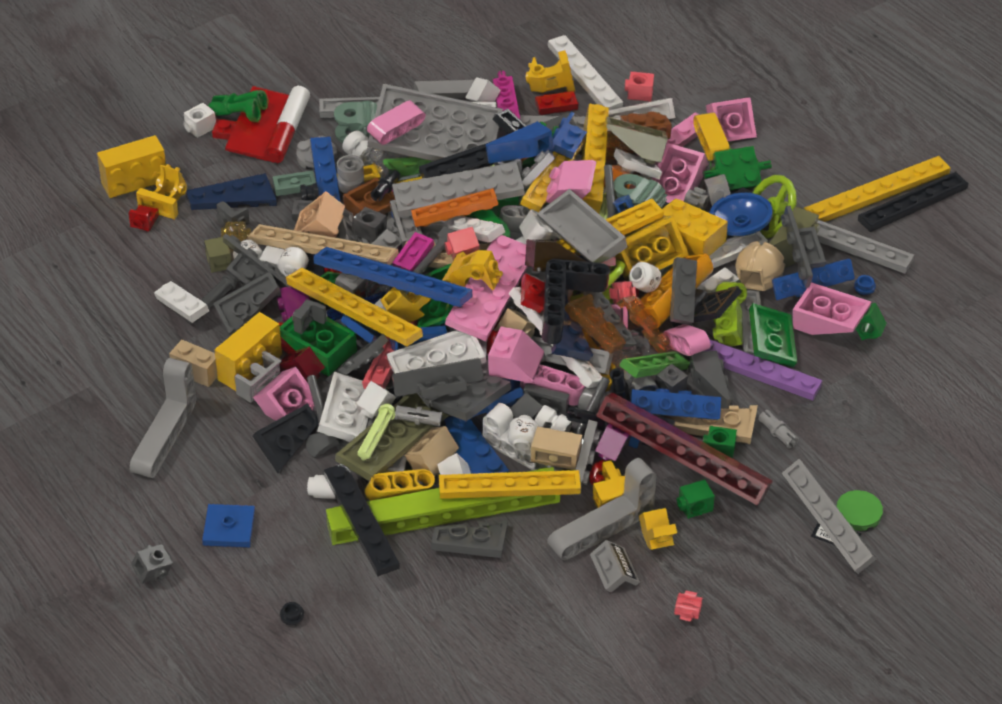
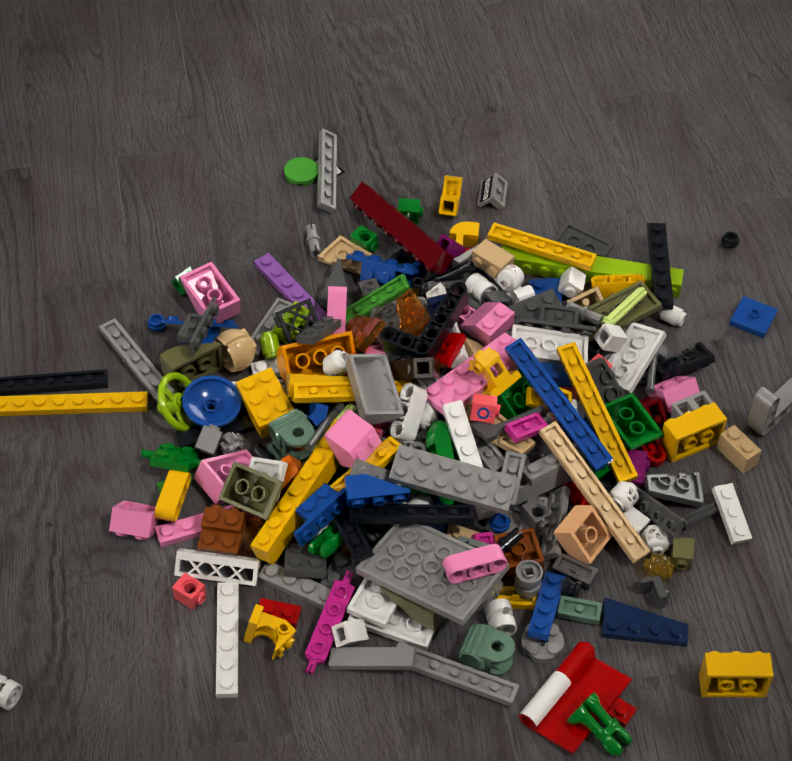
camera: 155 degrees left, 5 degrees up
(143, 217) = (738, 628): red bracket -> none
(169, 183) = (715, 639): yellow tile -> none
(199, 120) = (639, 732): white brick -> none
(306, 314) = (637, 425): dark grey bracket -> none
(455, 207) = (468, 452): orange plate -> none
(611, 517) = (510, 215): light grey beam -> none
(688, 606) = (461, 148): coral gear -> none
(772, 335) = (264, 301): green plate -> none

